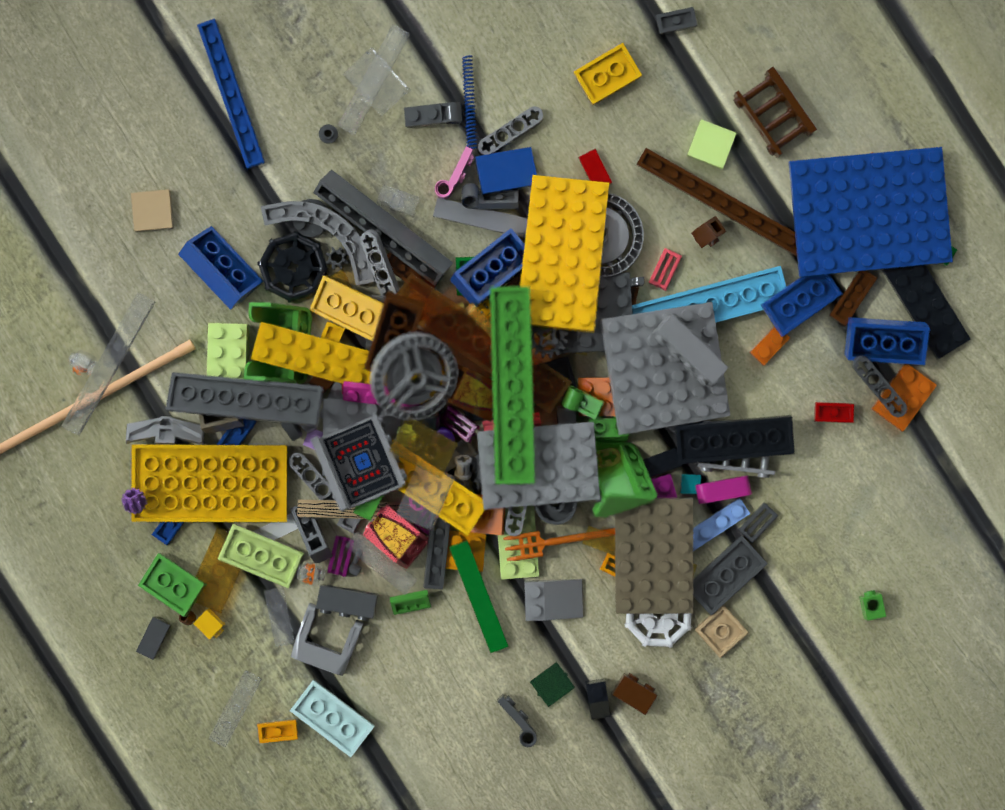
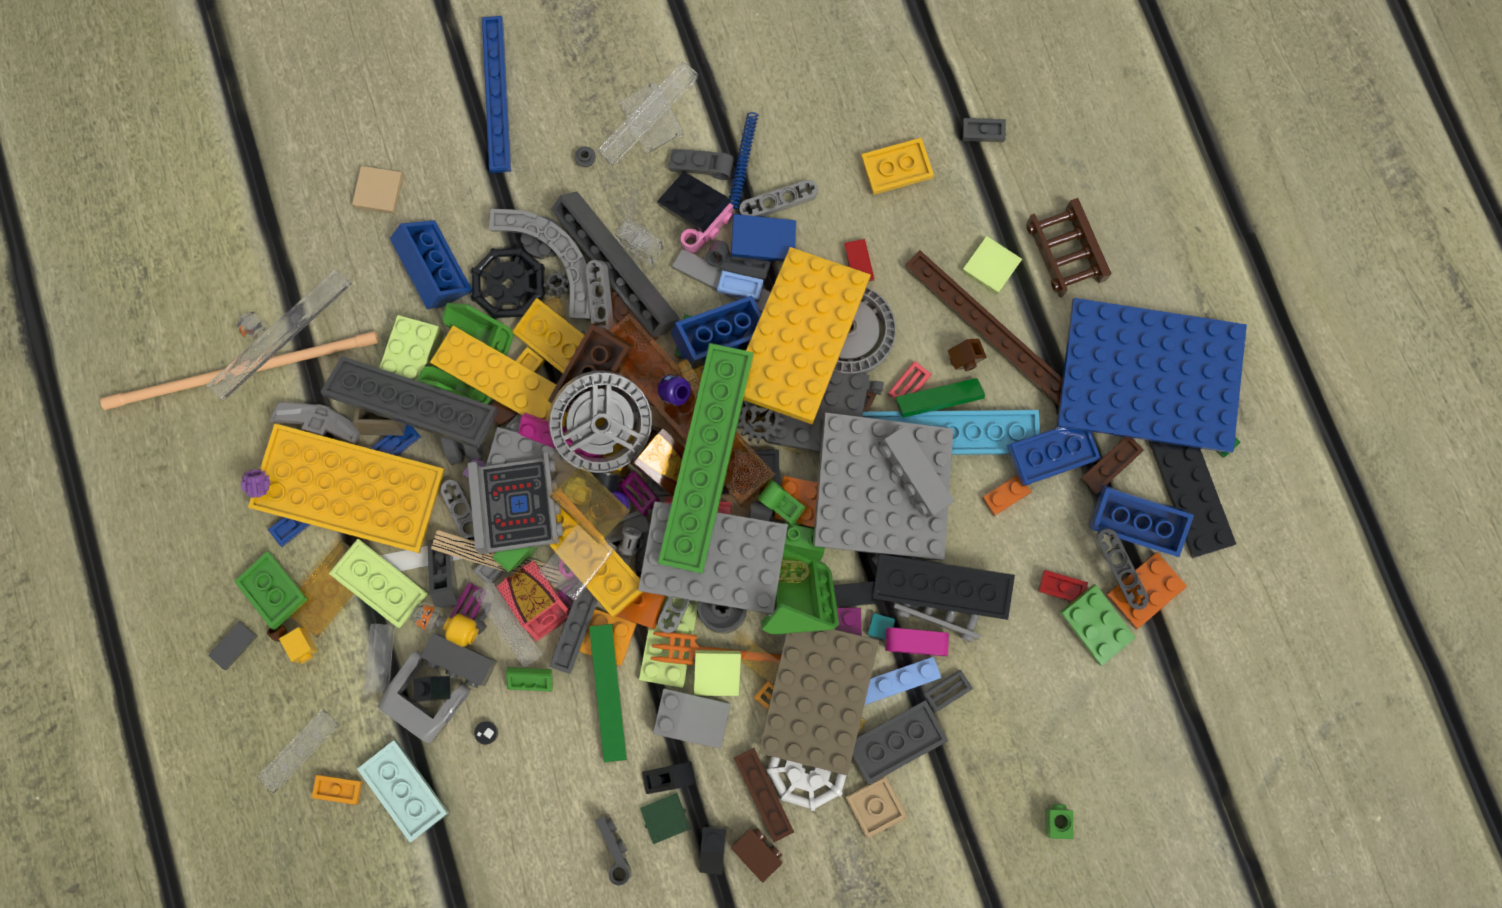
camera: 20 degrees right, 10 degrees down
(332, 631) = (431, 688): none -> black slope
(342, 577) = (460, 630): none -> yellow head
(386, 654) = (486, 732): none -> black tile
(436, 153) = (693, 201): none -> black plate
(469, 333) = (674, 390): none -> dark purple head
(497, 219) = (739, 285): none -> light blue tile
(547, 652) = (668, 777): none -> black slope
(564, 557) = (717, 673): none -> yellowish green tile
(628, 645) = (764, 795): none -> reddish brown plate
(694, 276) = (940, 397): none -> green tile
(869, 437) = (1097, 624): none -> bright green plate

